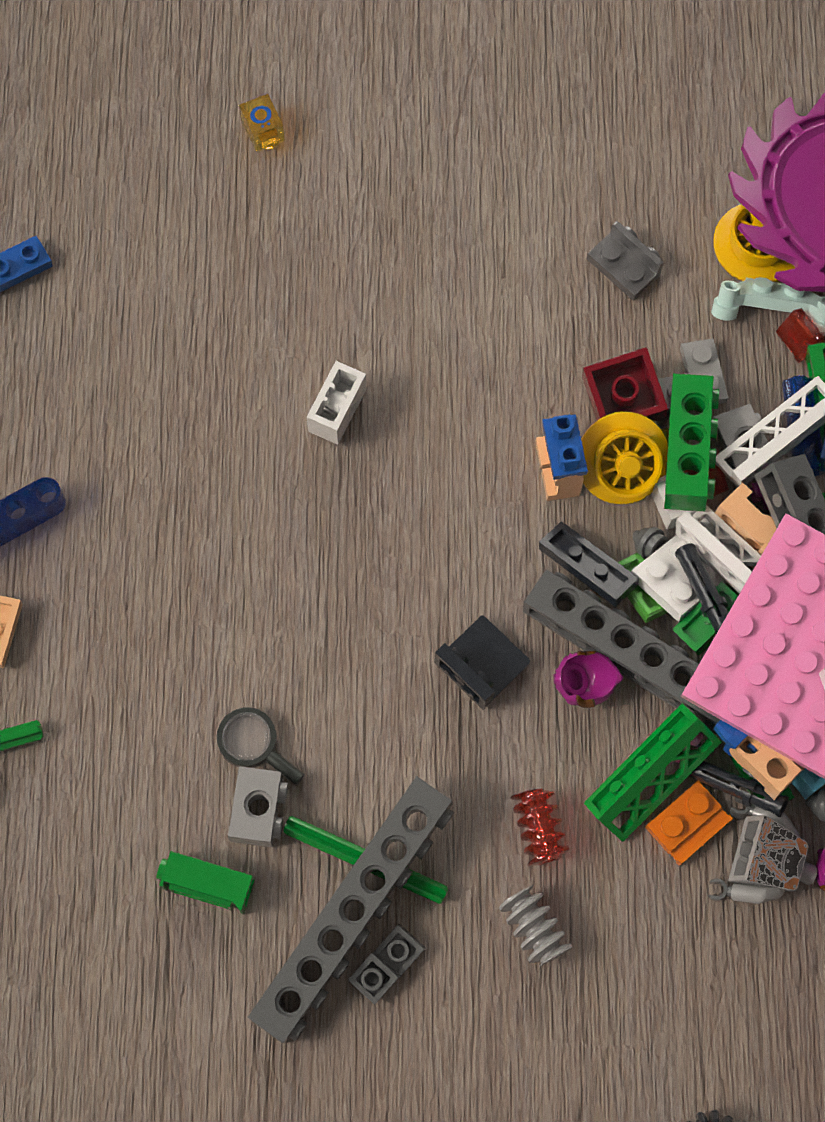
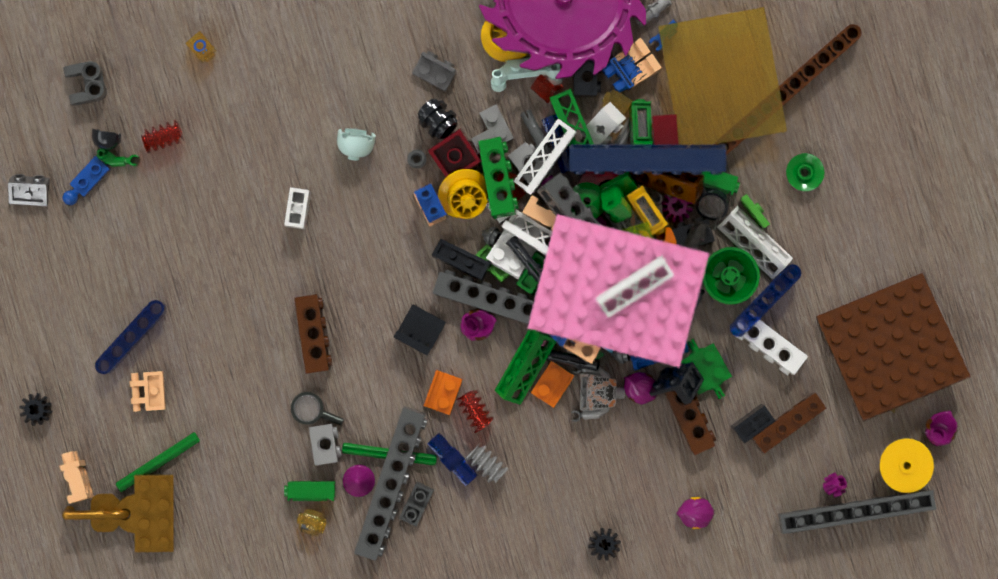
camera: 10 degrees left, 15 degrees up
(62, 210) = (105, 140): none -> black hair
(62, 252) = (114, 161): none -> green arm
(71, 125) = (90, 82): none -> dark grey piece
(153, 234) = (162, 136): none -> clear red piece
(189, 939) = (311, 522): none -> clear yellow head
(296, 891) = (358, 480): none -> magenta hat
(297, 560) = (302, 305): none -> reddish brown brick
(464, 330) = (355, 143): none -> light aqua cylinder
(475, 901) = (452, 459): none -> clear blue piece
(491, 780) = (443, 392): none -> orange plate
(560, 378) = (412, 154): none -> dark grey plate
(610, 328) = (439, 121): none -> black piece
(766, 391) = (535, 131): none -> dark grey pin

